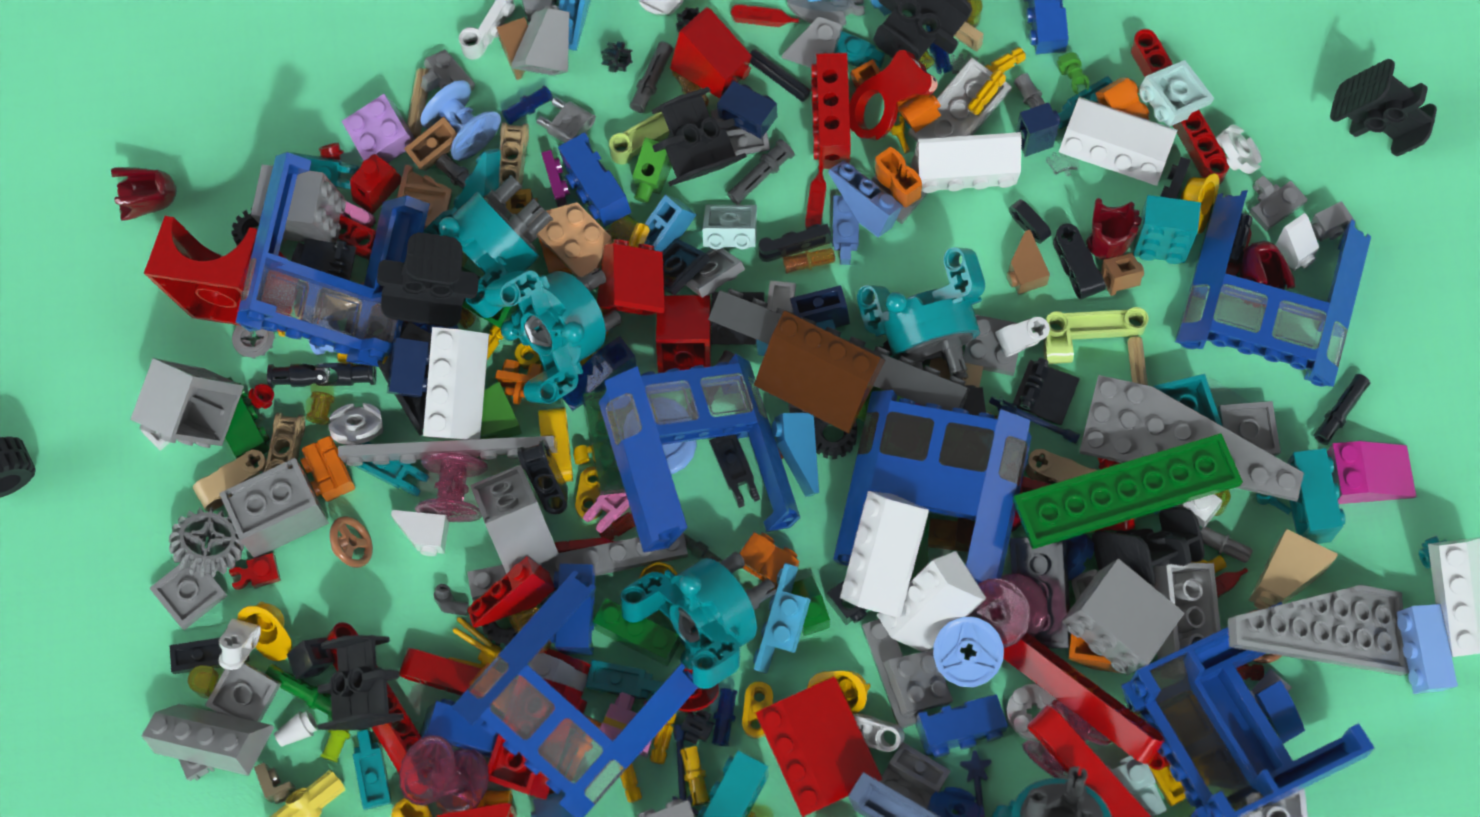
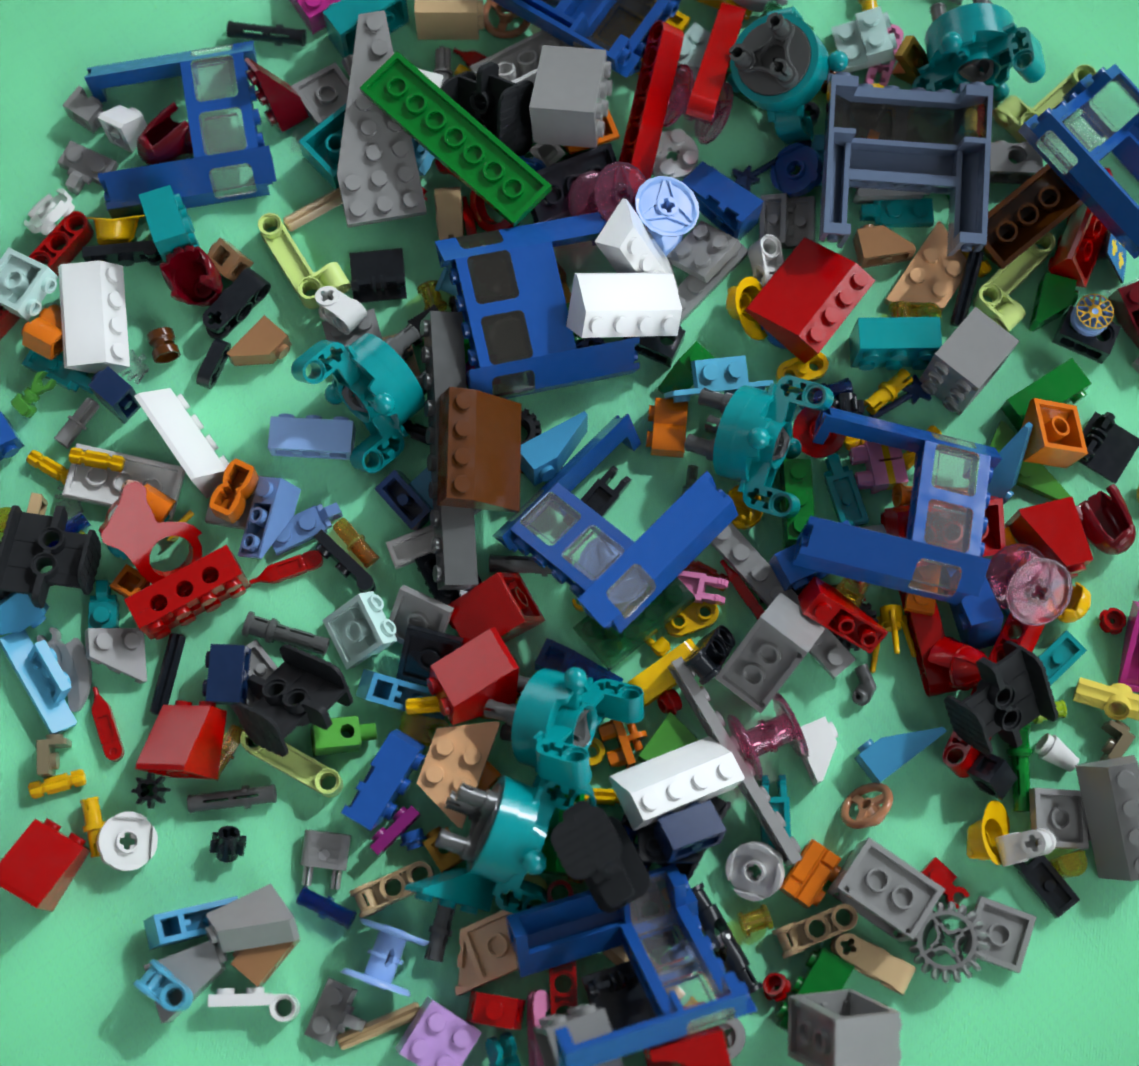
camera: 125 degrees left, 5 degrees up
(381, 588) = (892, 752): none -> dark azure slope
(418, 681) = (960, 660): none -> red helmet
(432, 144) = (426, 972): medium nougat slope -> none
(529, 431) = (669, 702): none -> red plate
(540, 188) = (413, 839): none -> blue plate
(920, 263) = (311, 437): none -> light blue brick
(1002, 403) = (412, 296): dark blue piece -> none
(1073, 191) = (163, 345): none -> reddish brown wheel
(1263, 376) = (281, 100): none -> dark red slope

